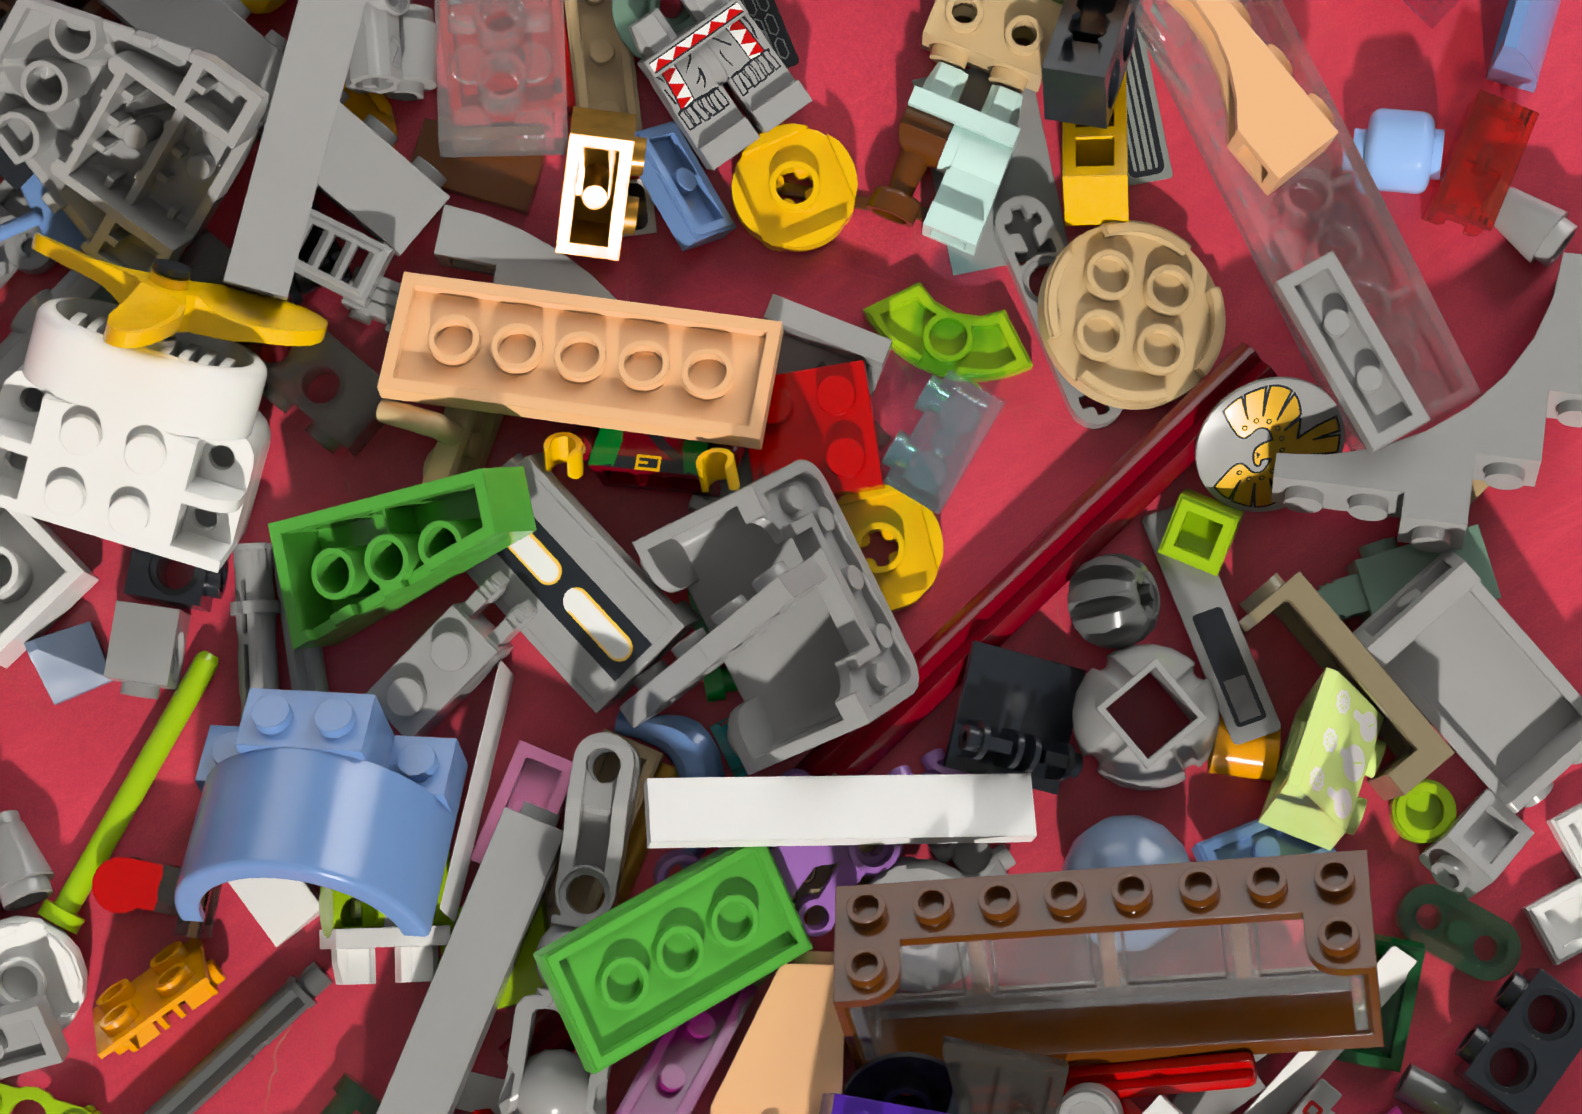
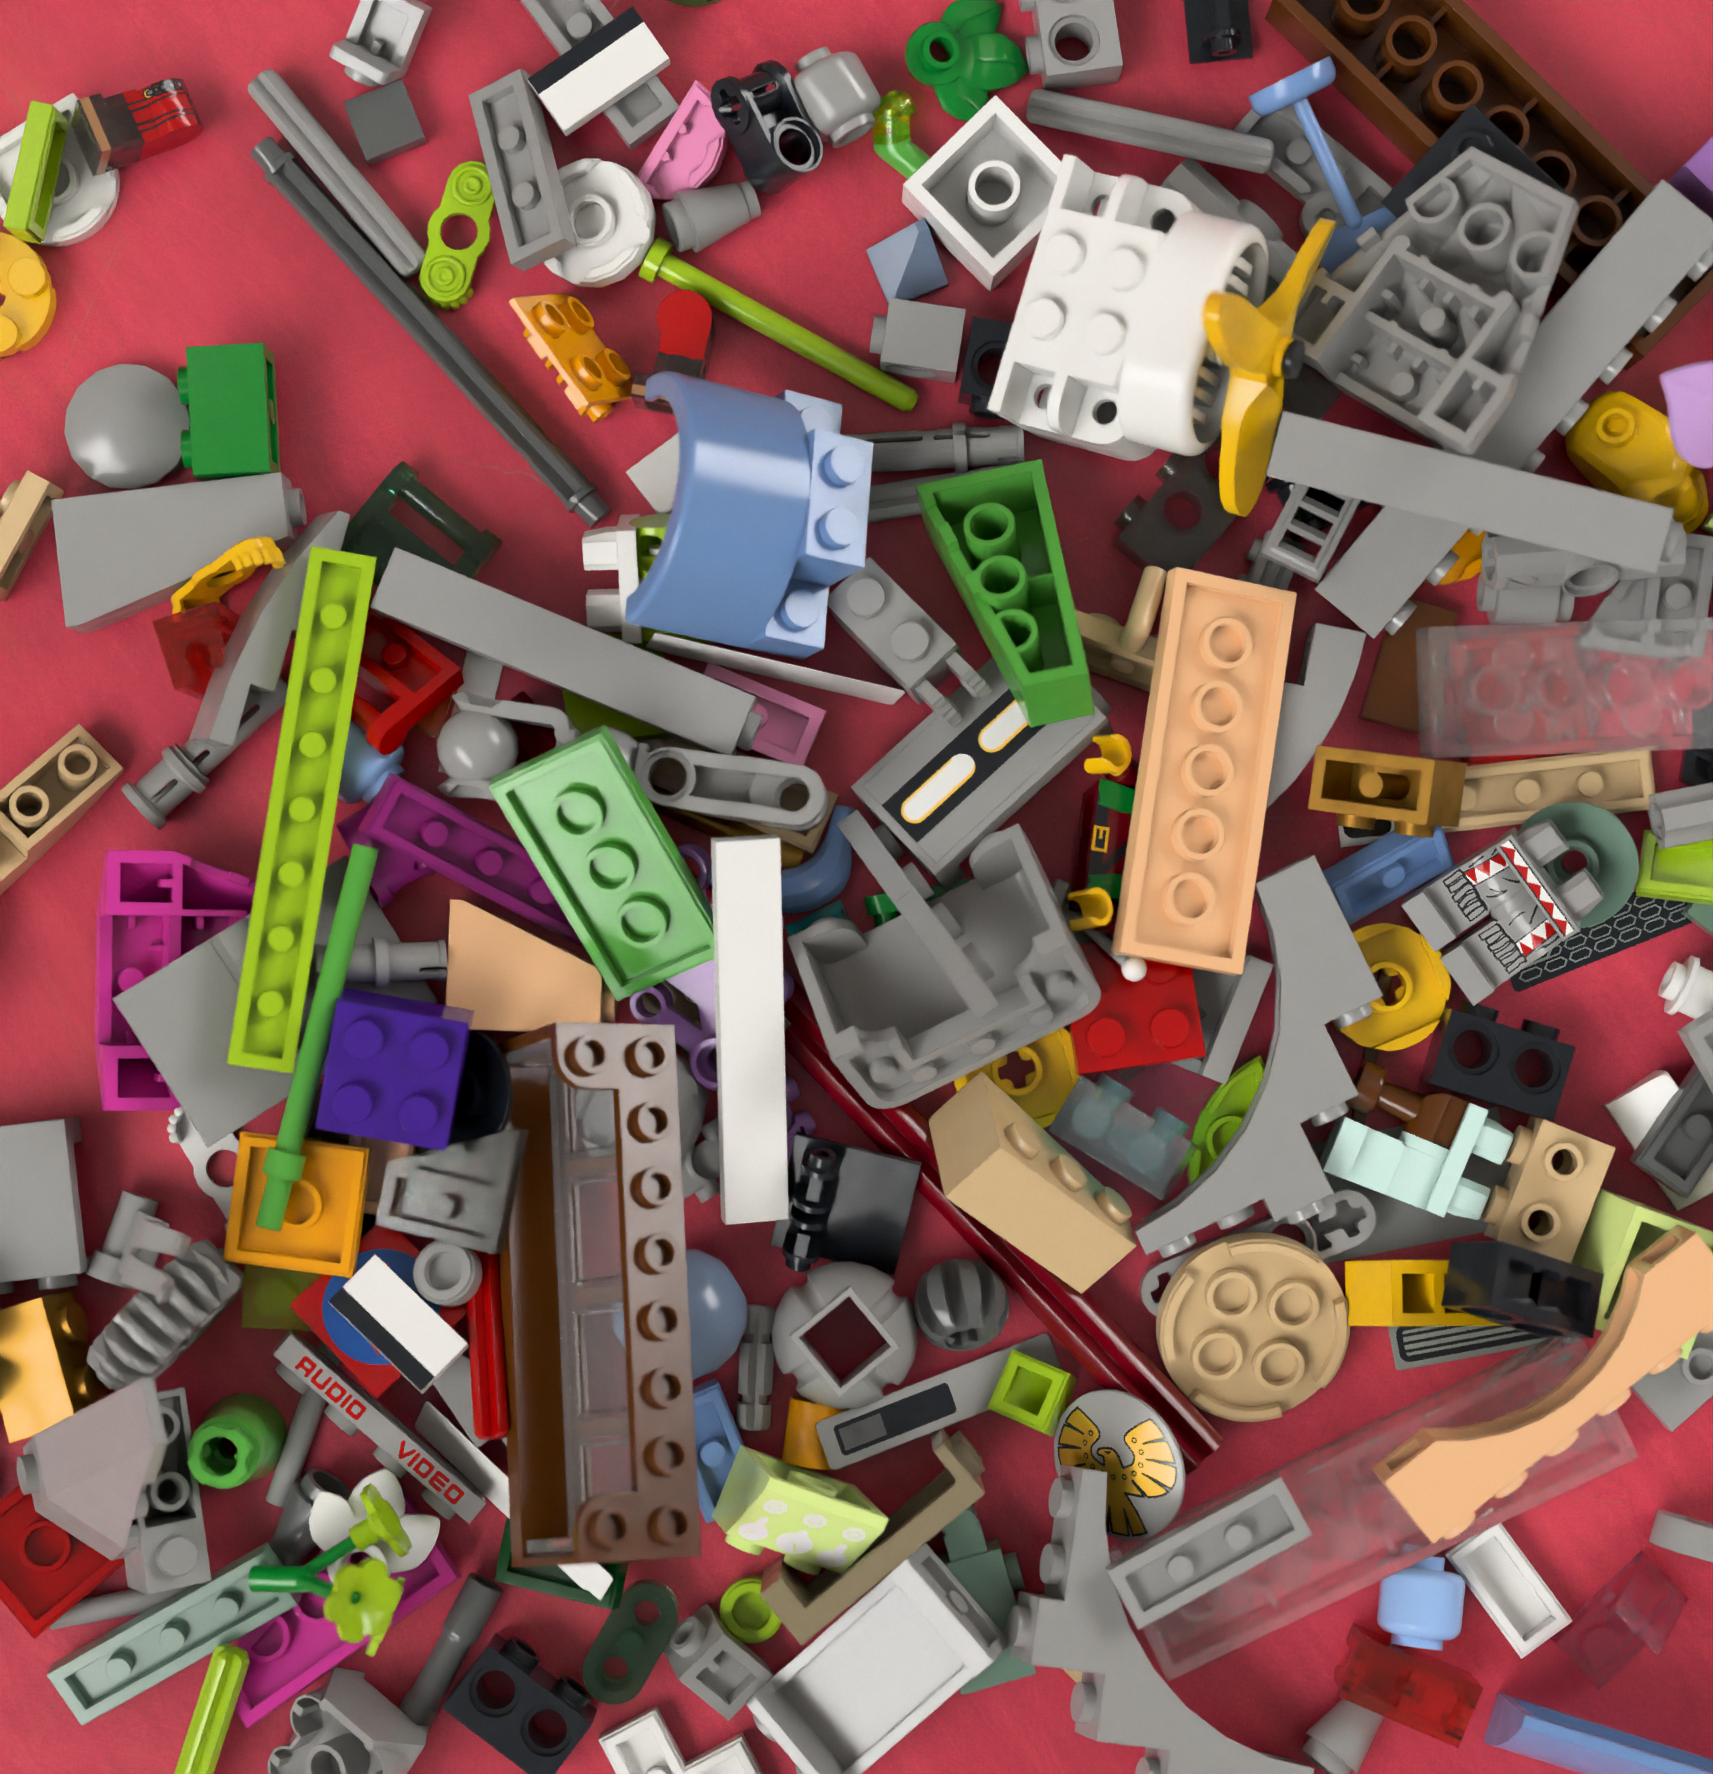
camera: 90 degrees right, 5 degrees up
(776, 429) = (1132, 967): none -> white hinge
(879, 81) = (1493, 1074): none -> black brick
(963, 297) = (1269, 1156): none -> light grey arch
(993, 534) = (1027, 1185): none -> tan wedge
(1183, 807) = (756, 1369): none -> light grey axle
(1384, 67) = (1509, 1588): none -> white tile

